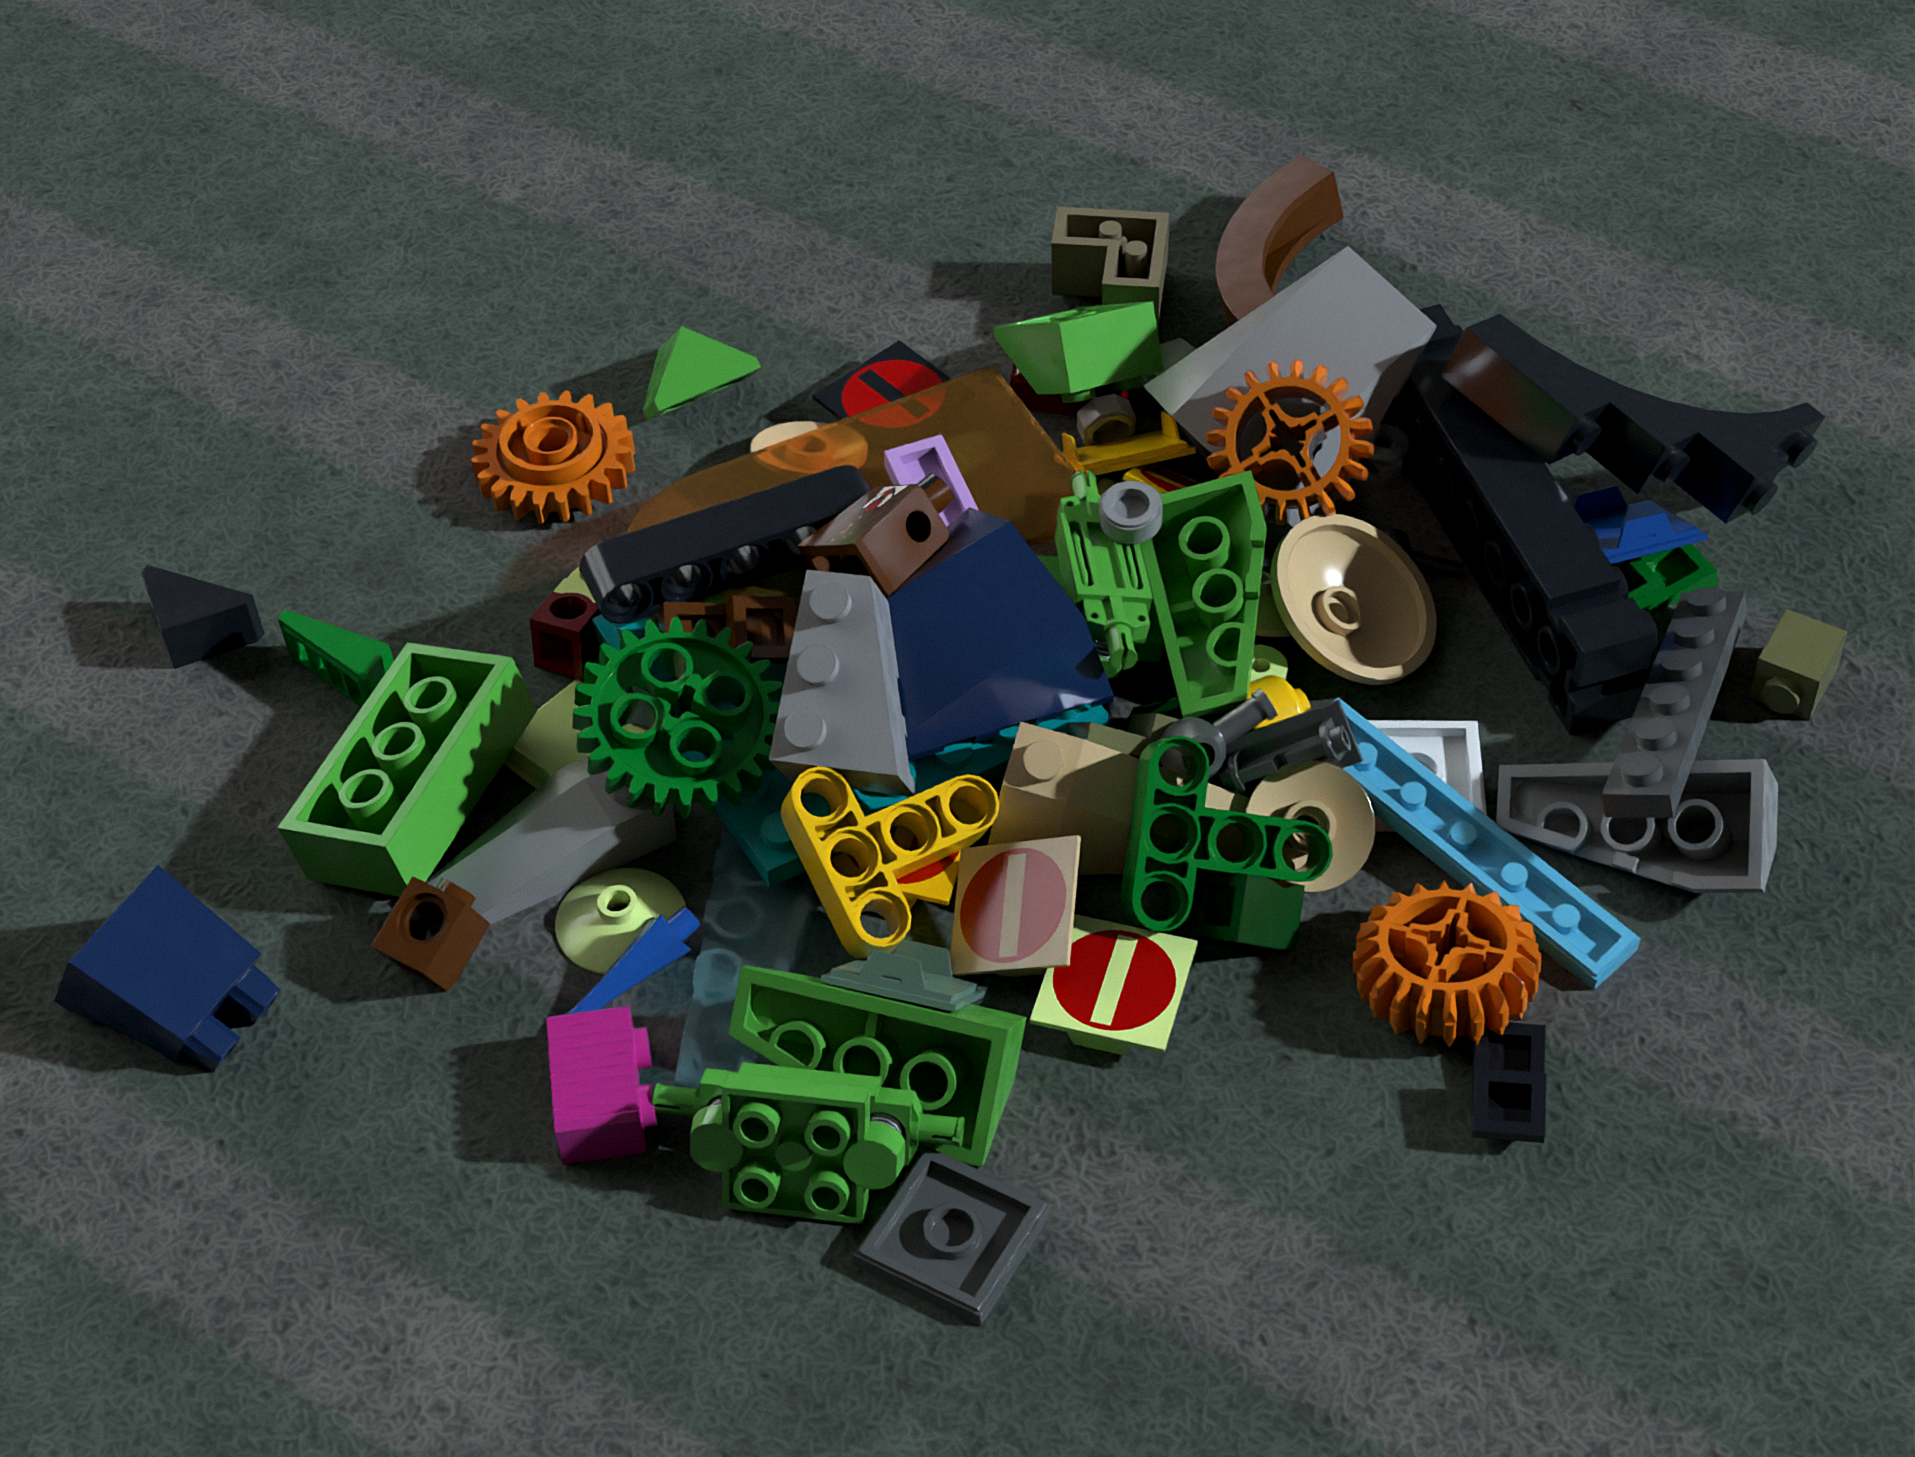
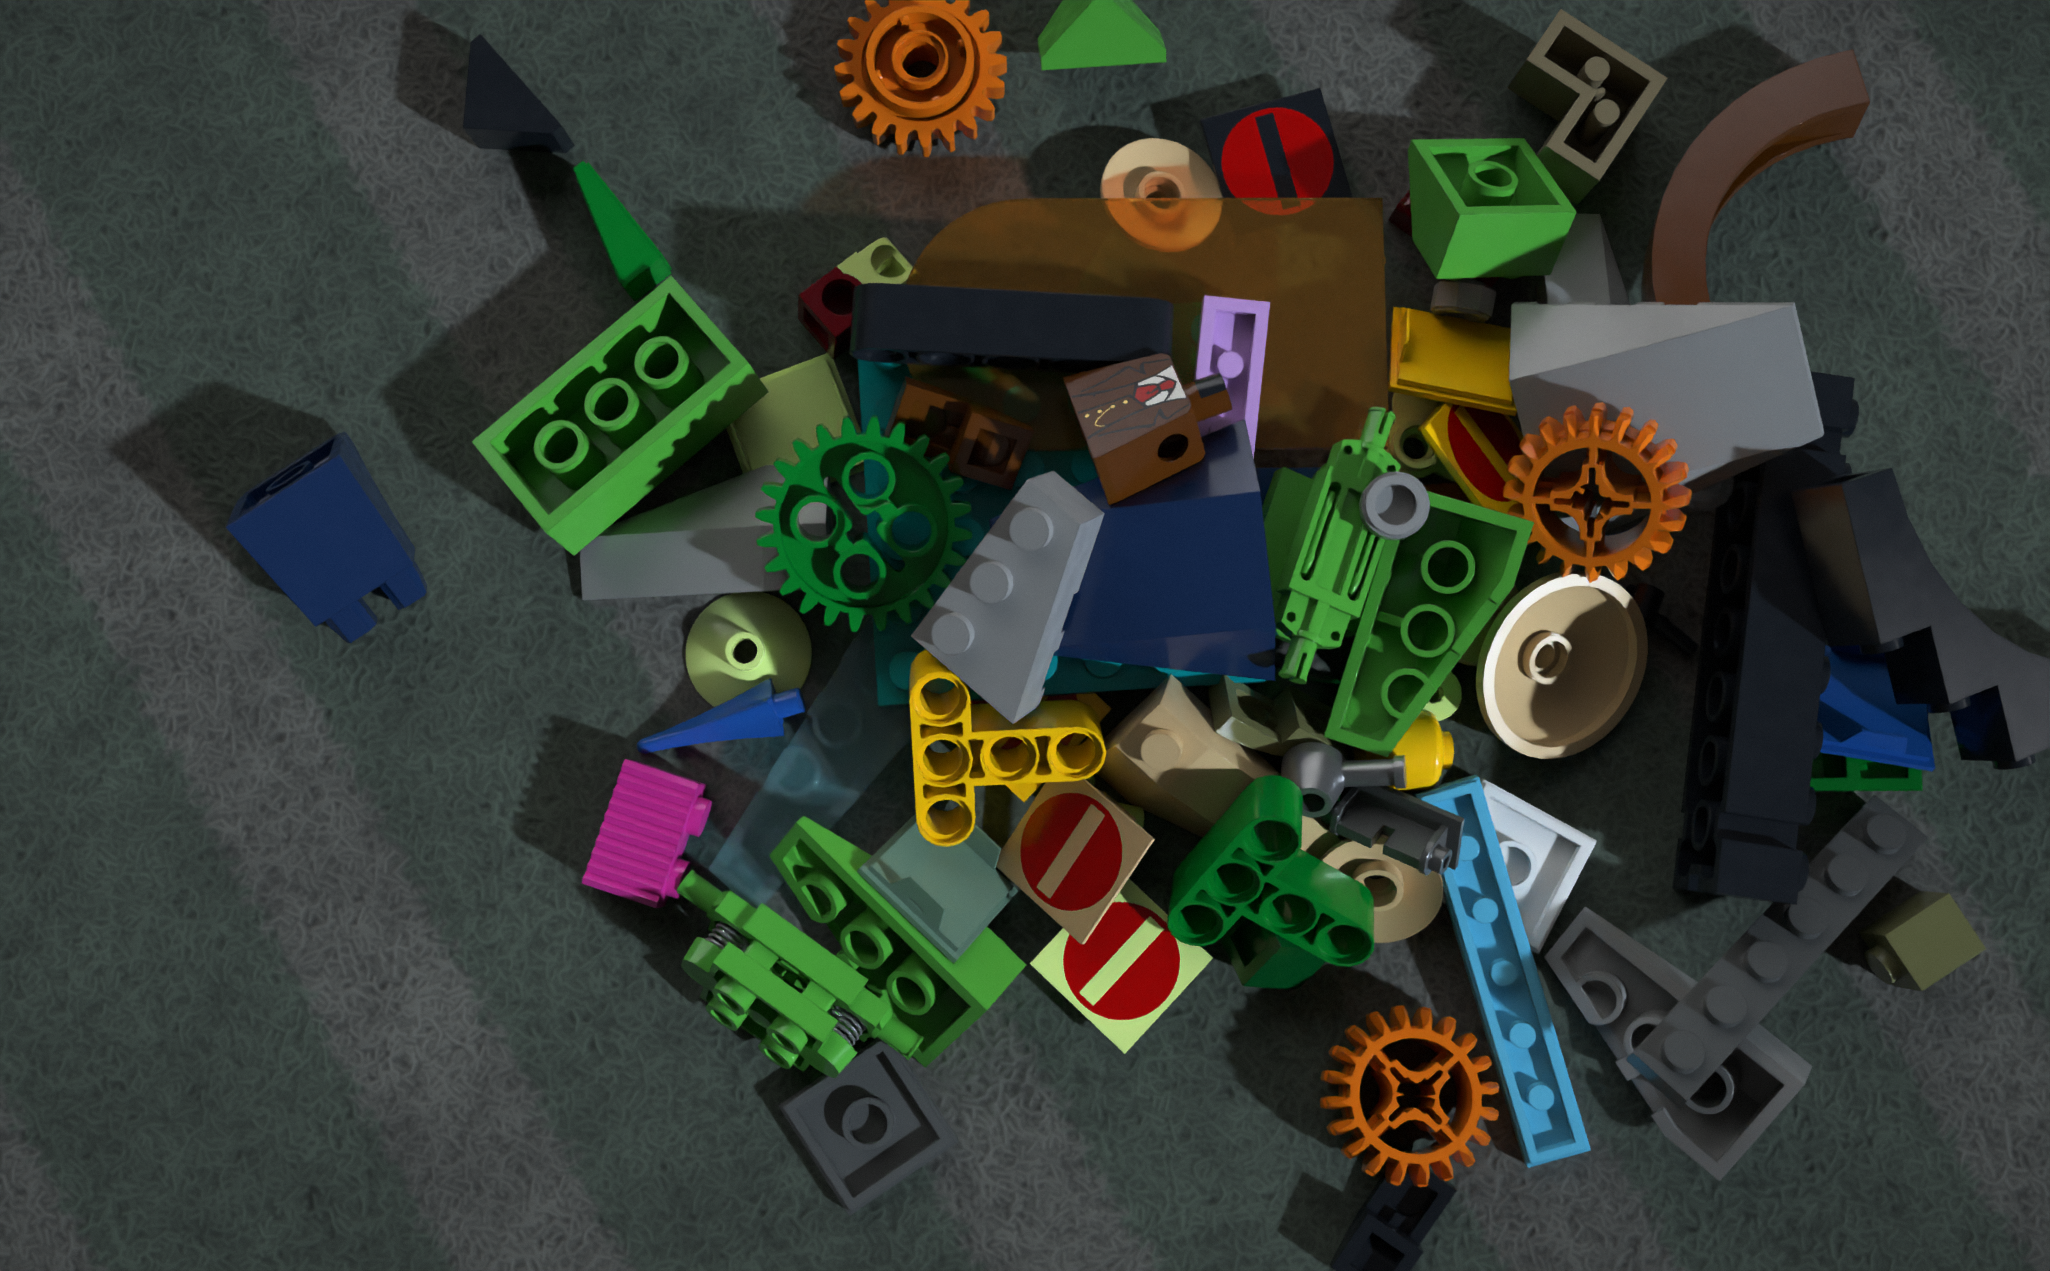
camera: 20 degrees right, 35 degrees up
(445, 954) = (548, 613): reddish brown brick -> none

